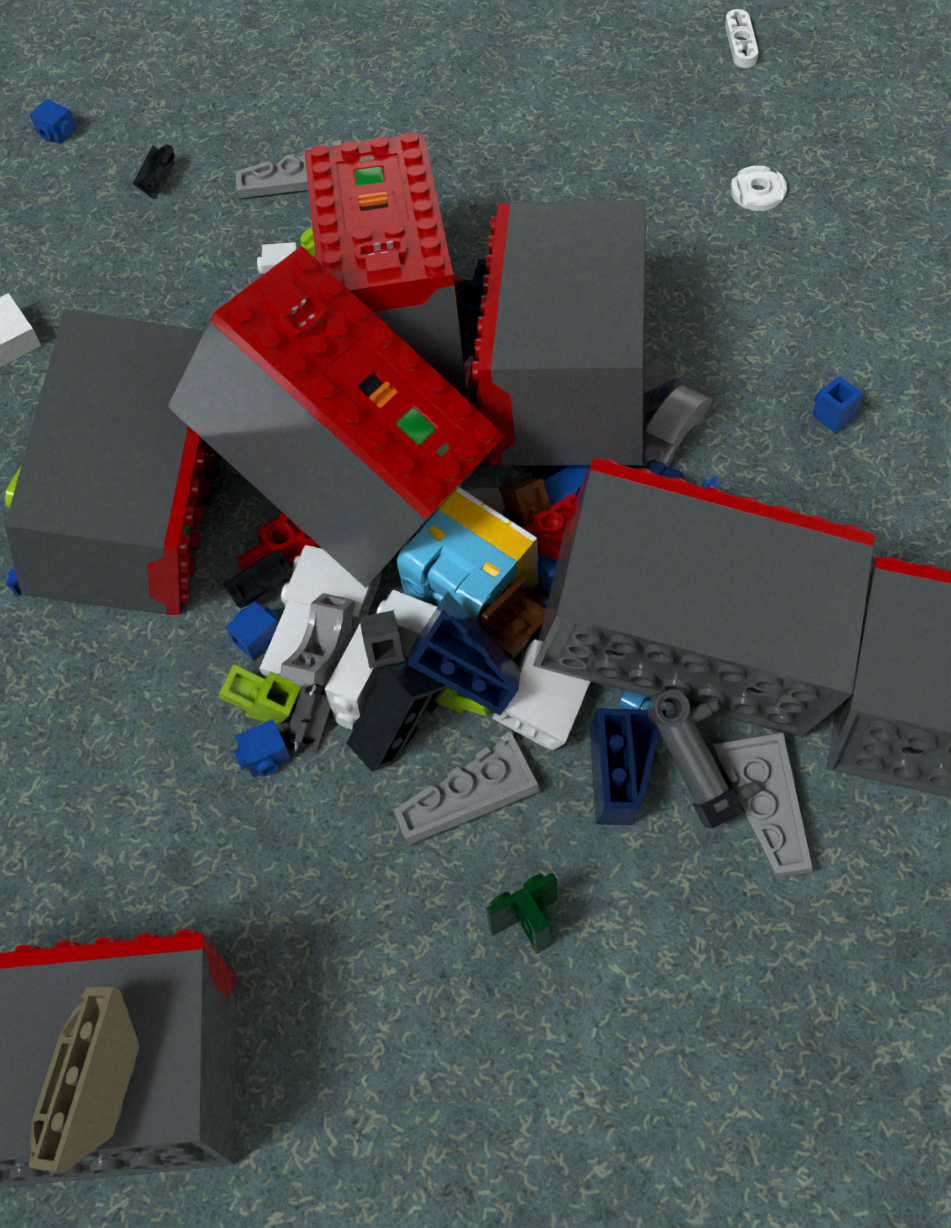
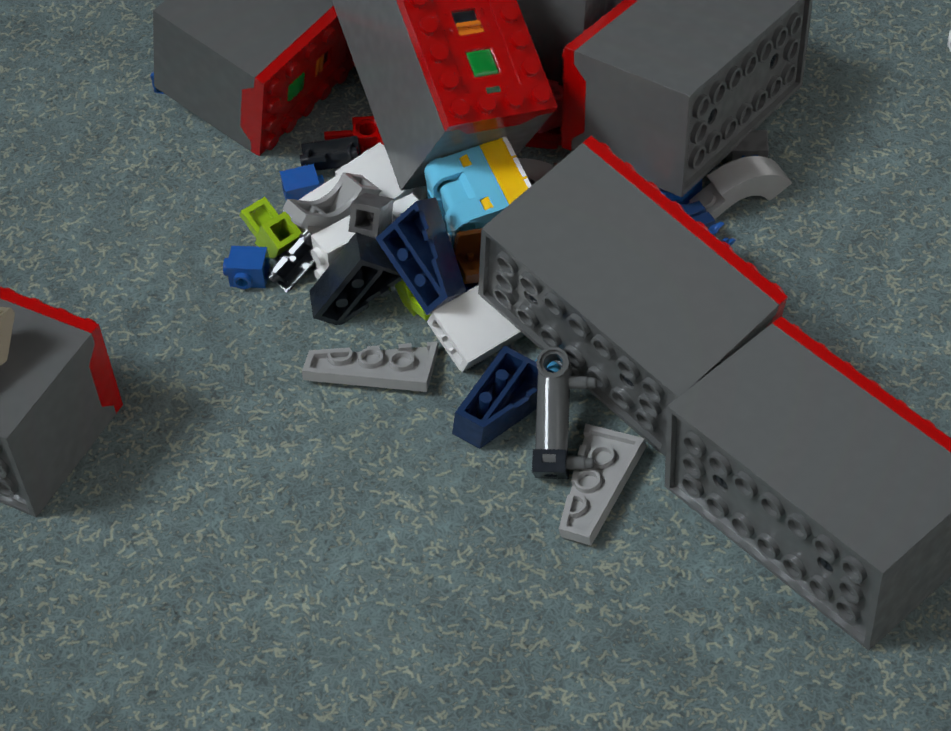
camera: 30 degrees right, 10 degrees down
(527, 908) = (350, 452): dark green bracket -> none
(837, 404) = (892, 229): blue brick -> none

